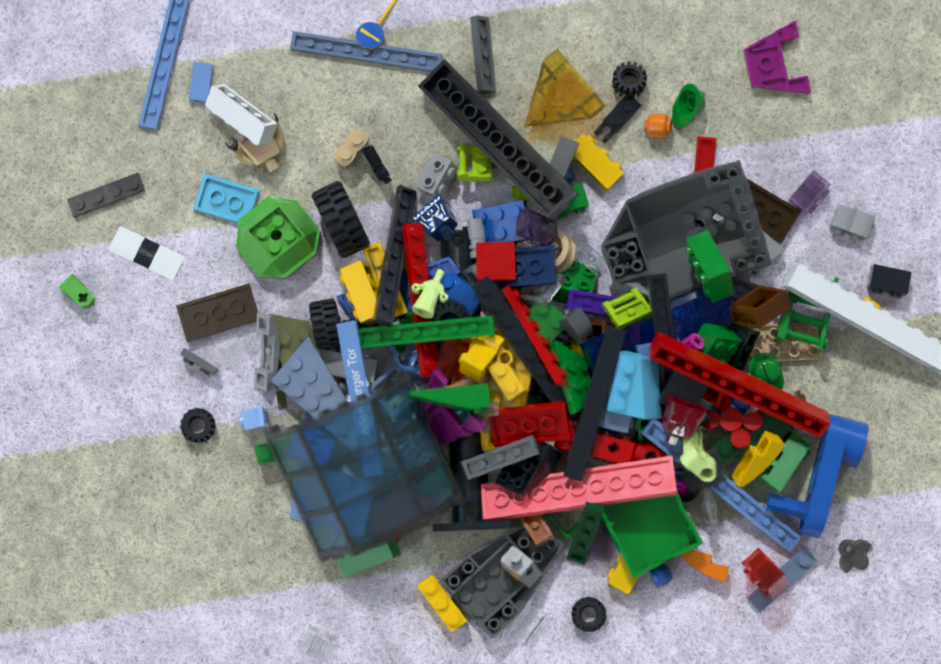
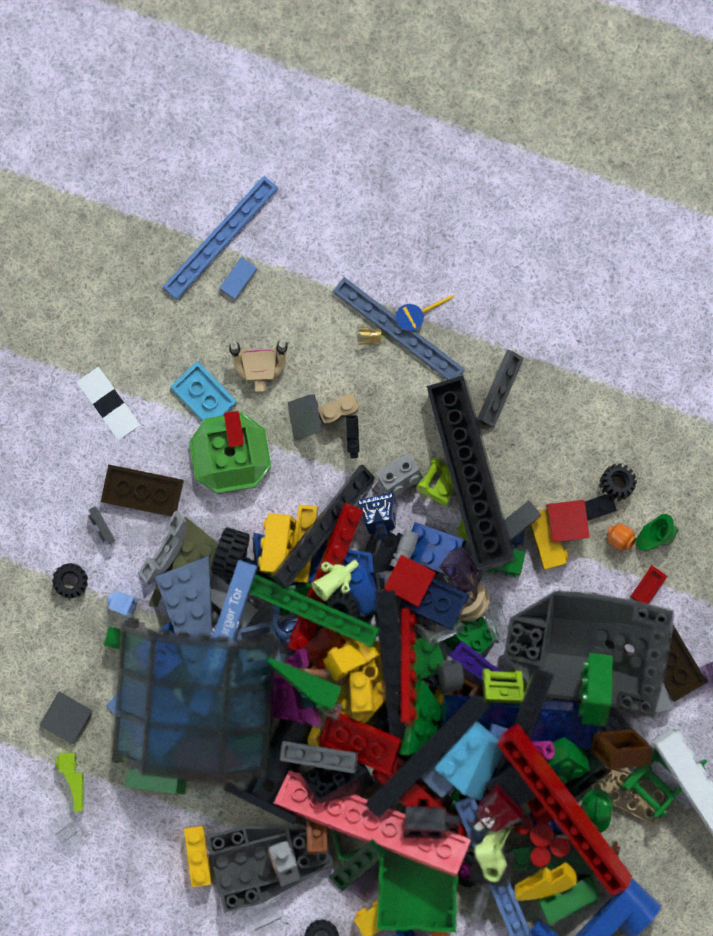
camera: 30 degrees right, 0 degrees up
(75, 290) = (28, 402): bright green piece -> none
(106, 194) = (101, 332): black plate -> none
(241, 114) = (256, 327): white brick -> none
(260, 546) = (65, 717): none -> dark grey tile
(269, 213) = (233, 428): none -> red sticker
(284, 587) = (67, 765): none -> lime slope
(325, 168) = (304, 416): none -> dark grey tile
(340, 219) = (293, 468): black tyre -> none
(346, 67) = (373, 335): none -> pearl gold piece
(561, 94) = (550, 463): clear yellow wedge -> none
(604, 136) = (567, 521): none -> red tile
(627, 460) = (429, 822): none -> black hinge

